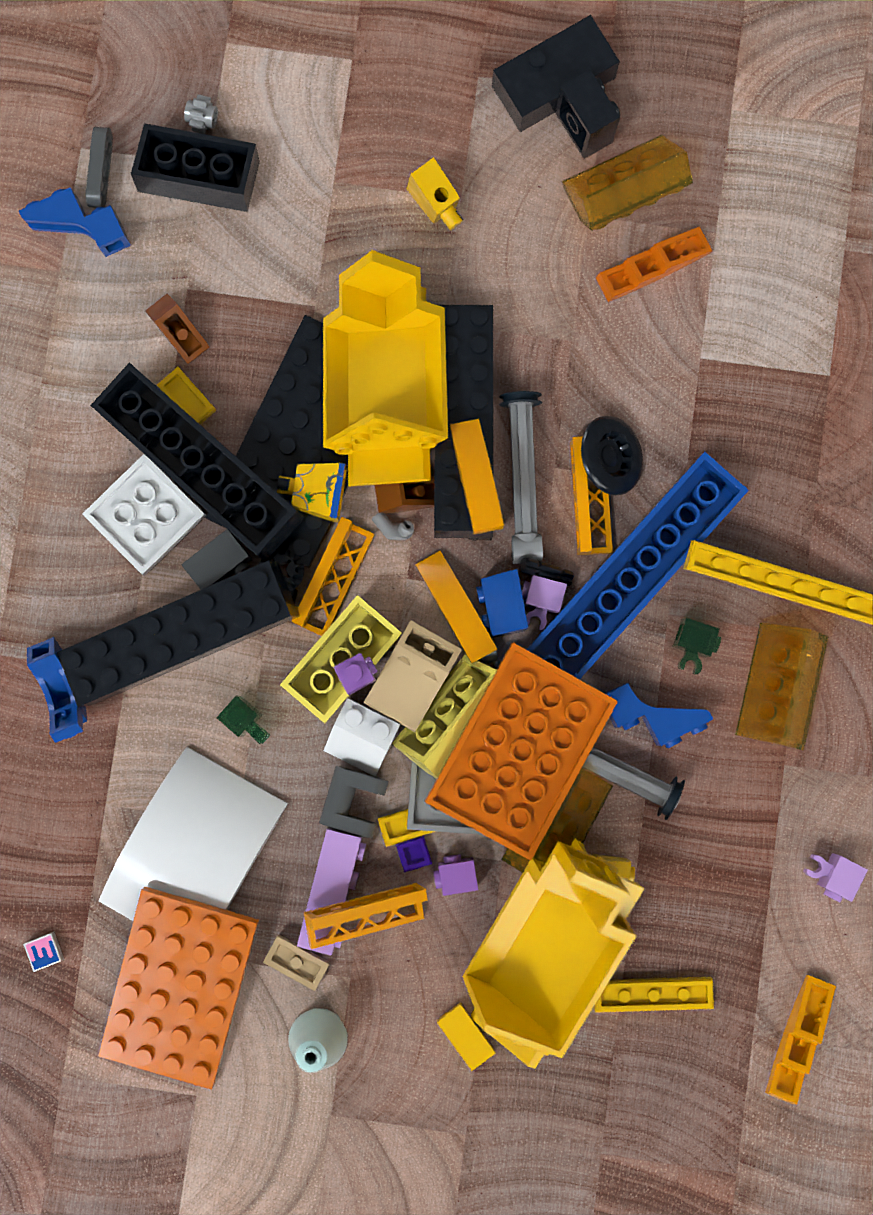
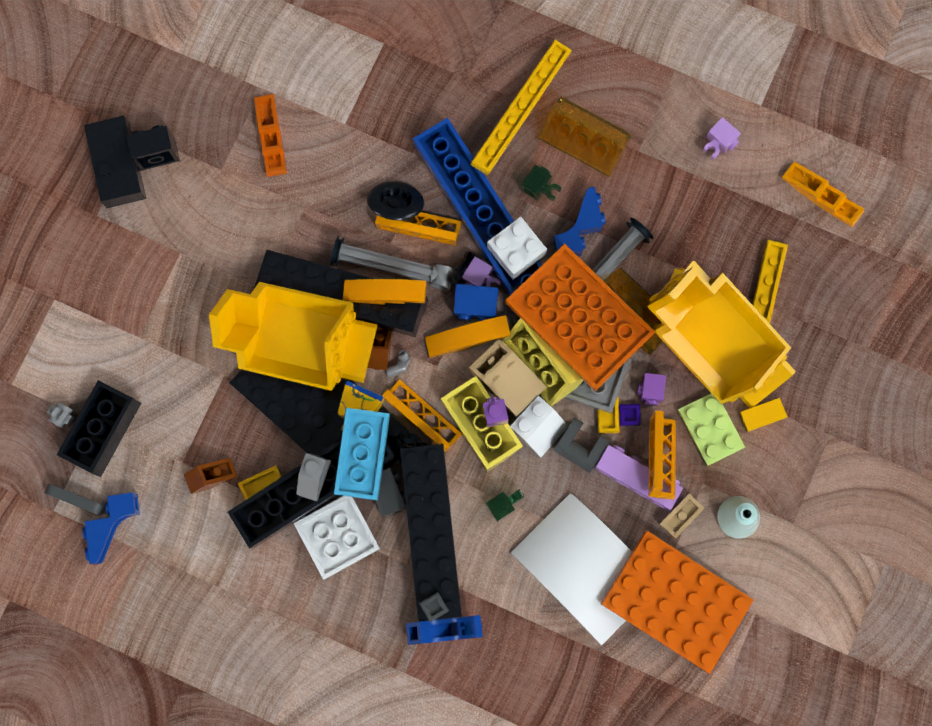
camera: 70 degrees left, 5 degrees down
(43, 951) = (626, 694): tile -> none
(77, 667) = (434, 606): none -> dark grey tile
(201, 455) = (312, 476): none -> light grey slope
(245, 511) = (361, 454): none -> medium azure plate
(425, 970) = (711, 429): none -> yellowish green plate
(429, 184) = (174, 267): yellow torso -> none
(591, 637) = (516, 248): none -> white brick
(628, 182) = (207, 135): clear yellow slope -> none

